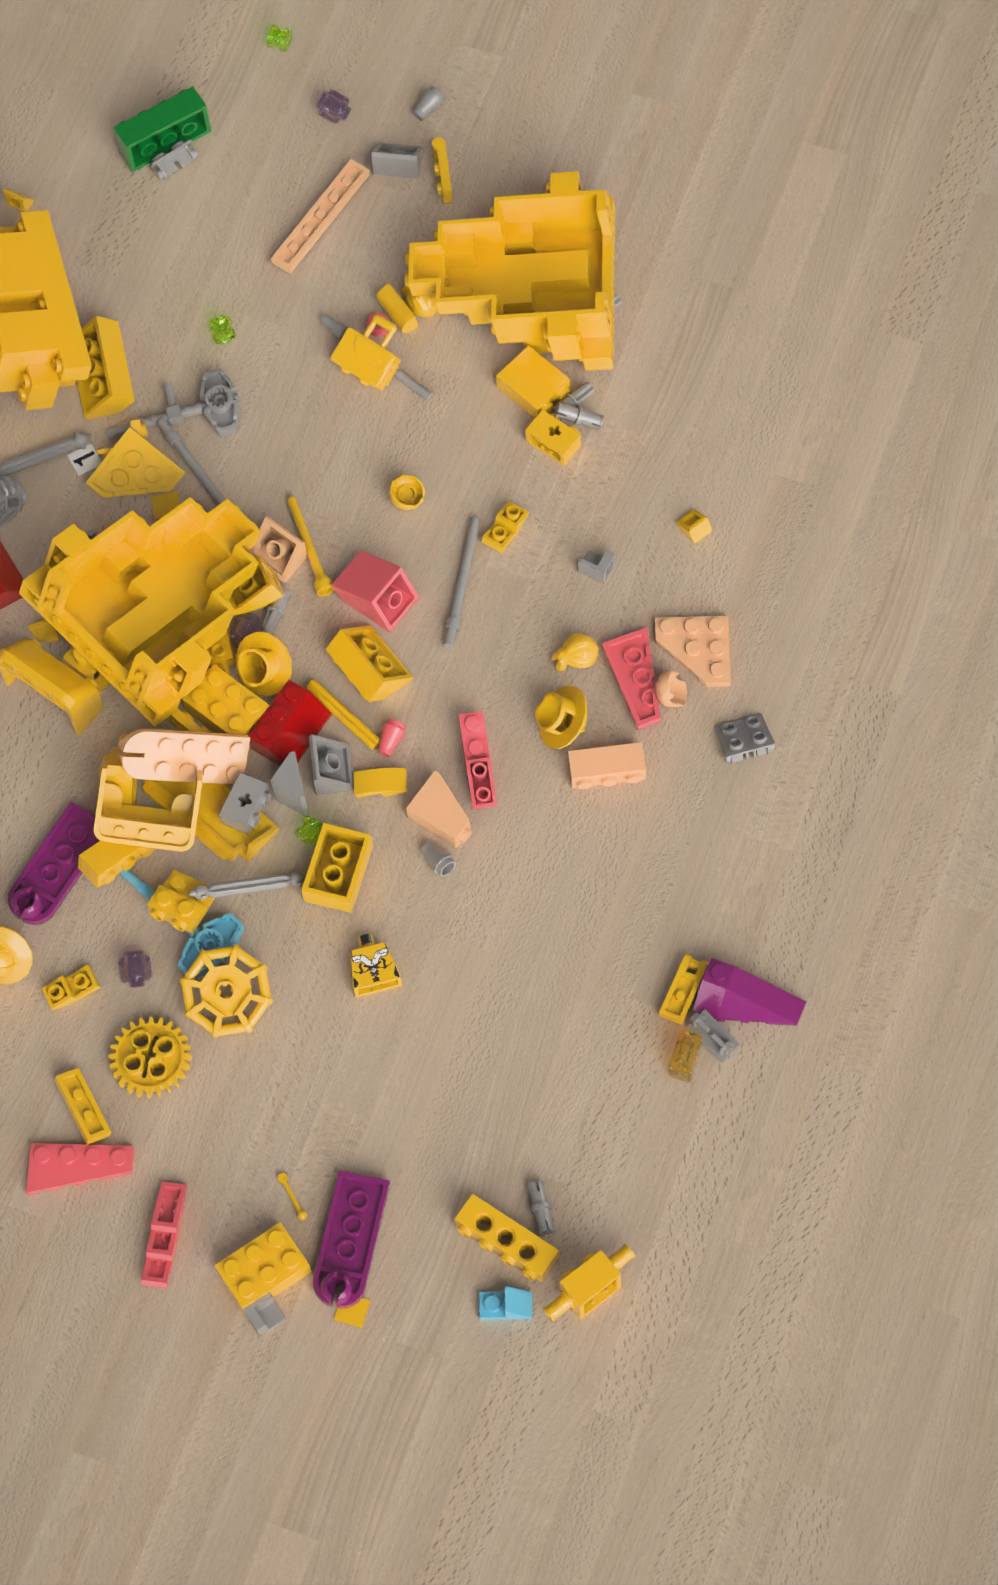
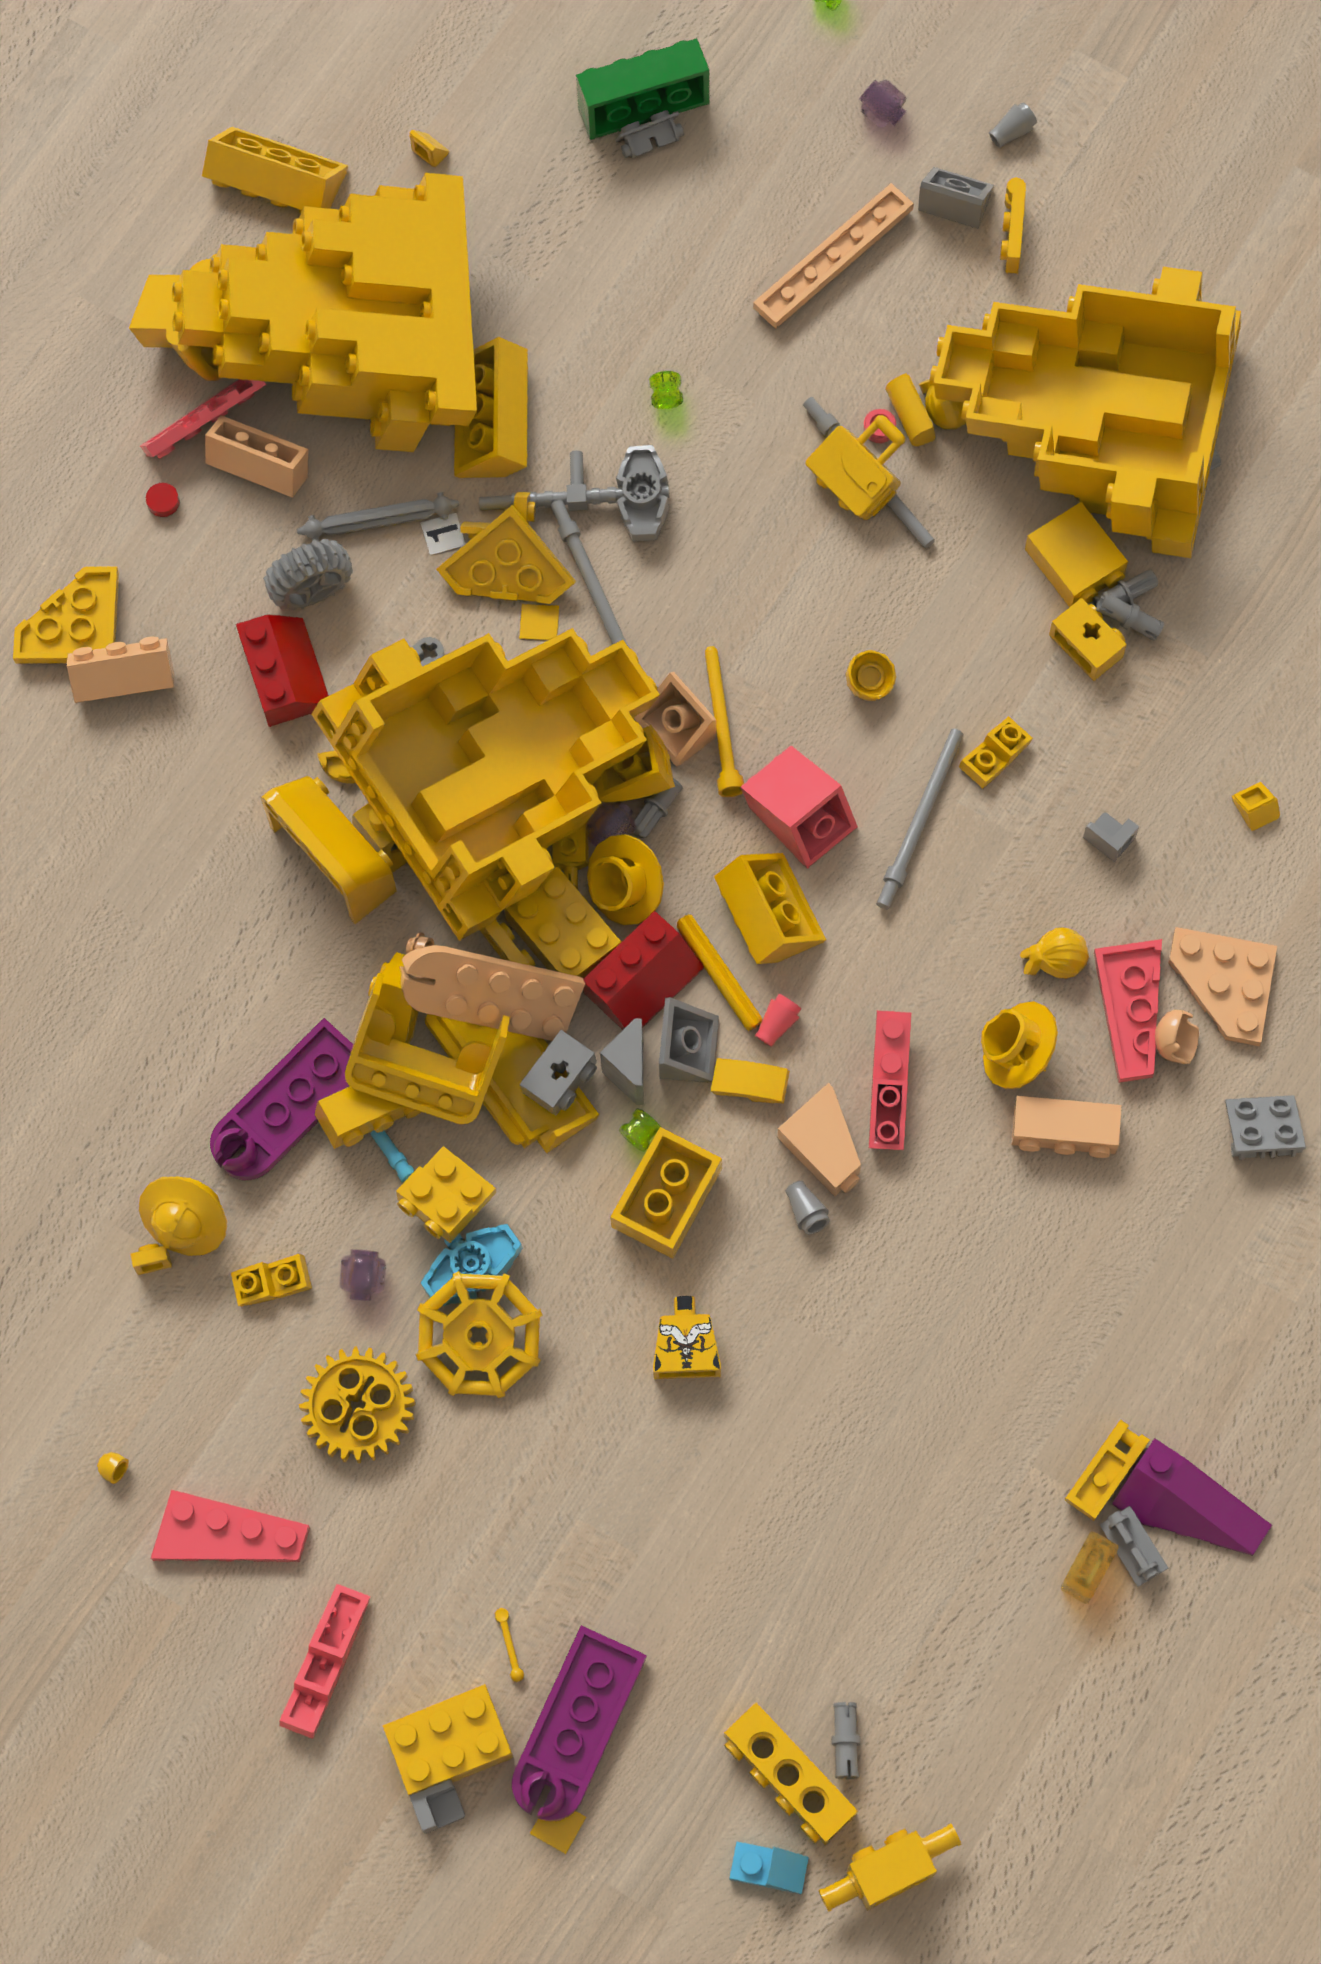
camera: 10 degrees right, 5 degrees up
(82, 1106) = (251, 1453): yellow plate -> none
(248, 885) = (539, 1191): light grey wheel -> none

